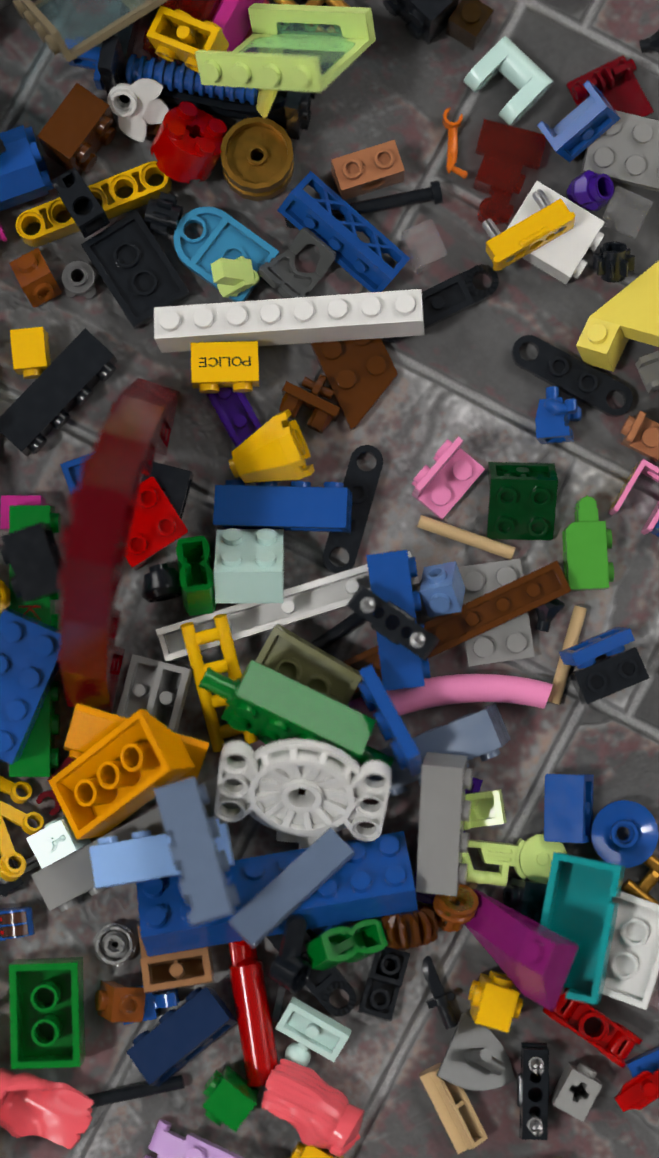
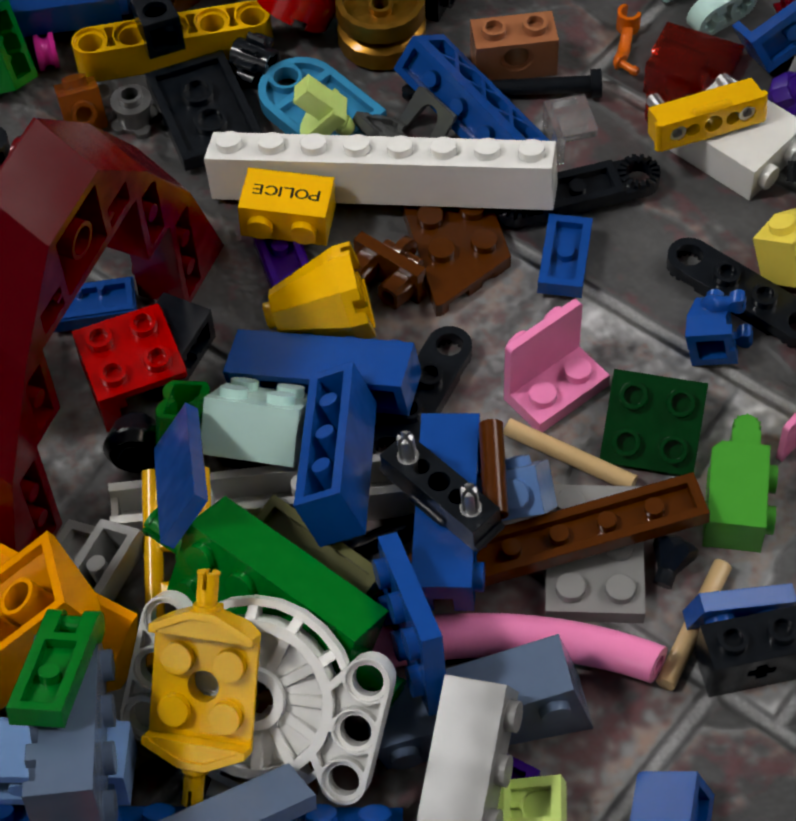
camera: 15 degrees right, 30 degrees down
(181, 824) = (55, 668): none -> green plate
(216, 647) = (180, 476): none -> blue piece
(265, 819) = (184, 724): none -> yellow plate
(313, 595) = (336, 455): none -> blue brick
(424, 593) = (493, 463): none -> reddish brown piece
(437, 367) = (565, 255): none -> blue plate

